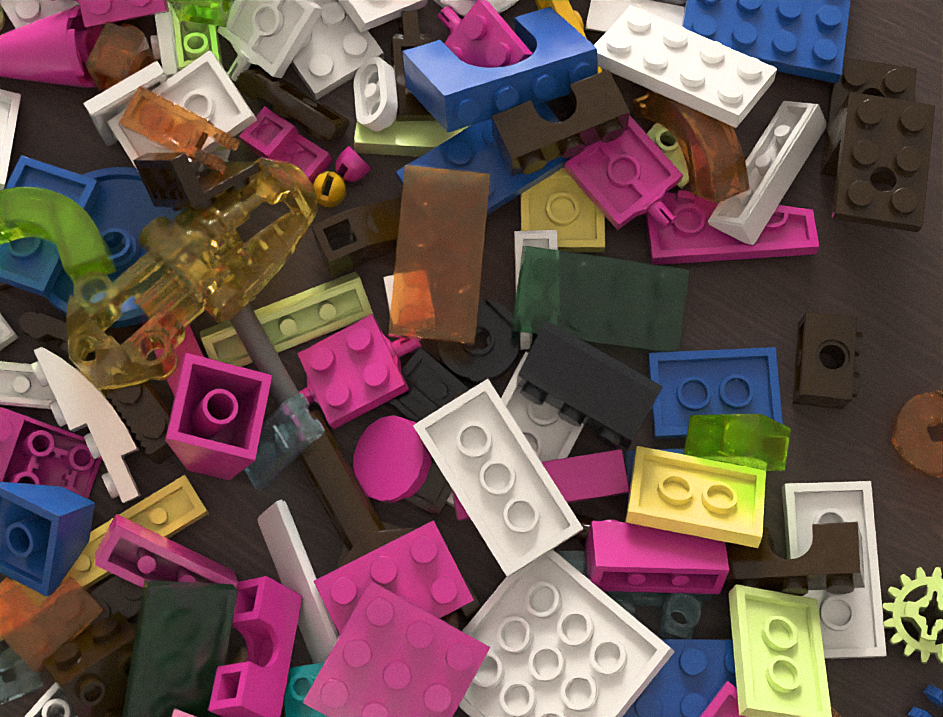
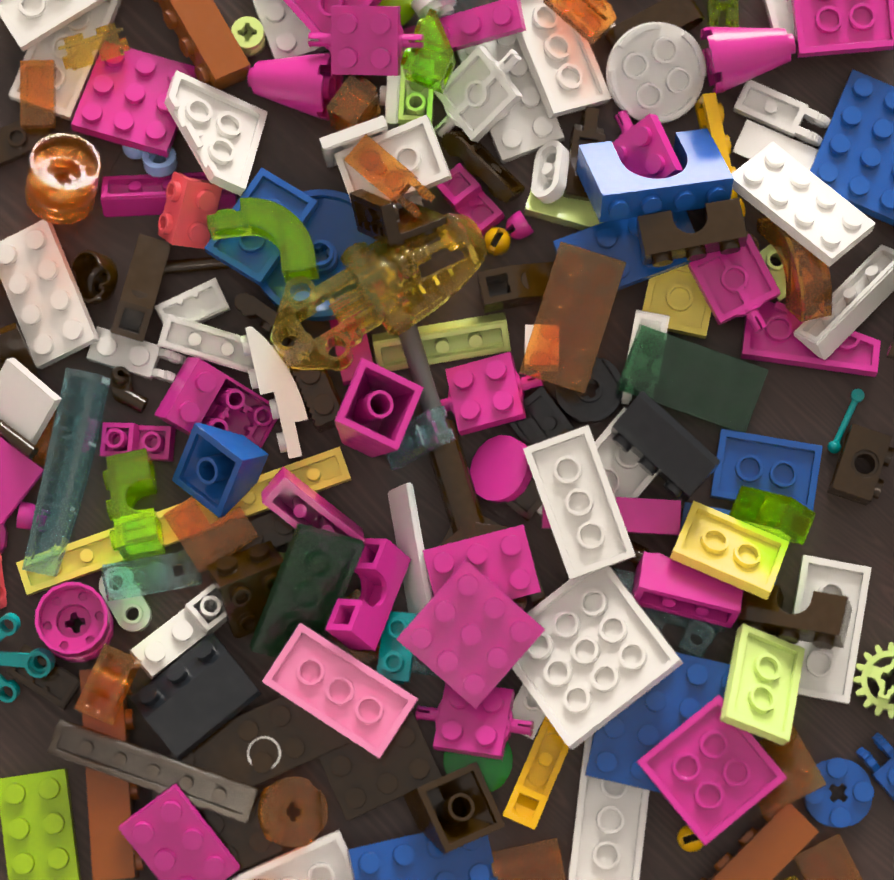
camera: 20 degrees right, 5 degrees up
(798, 282) = (856, 396): none -> teal hinge

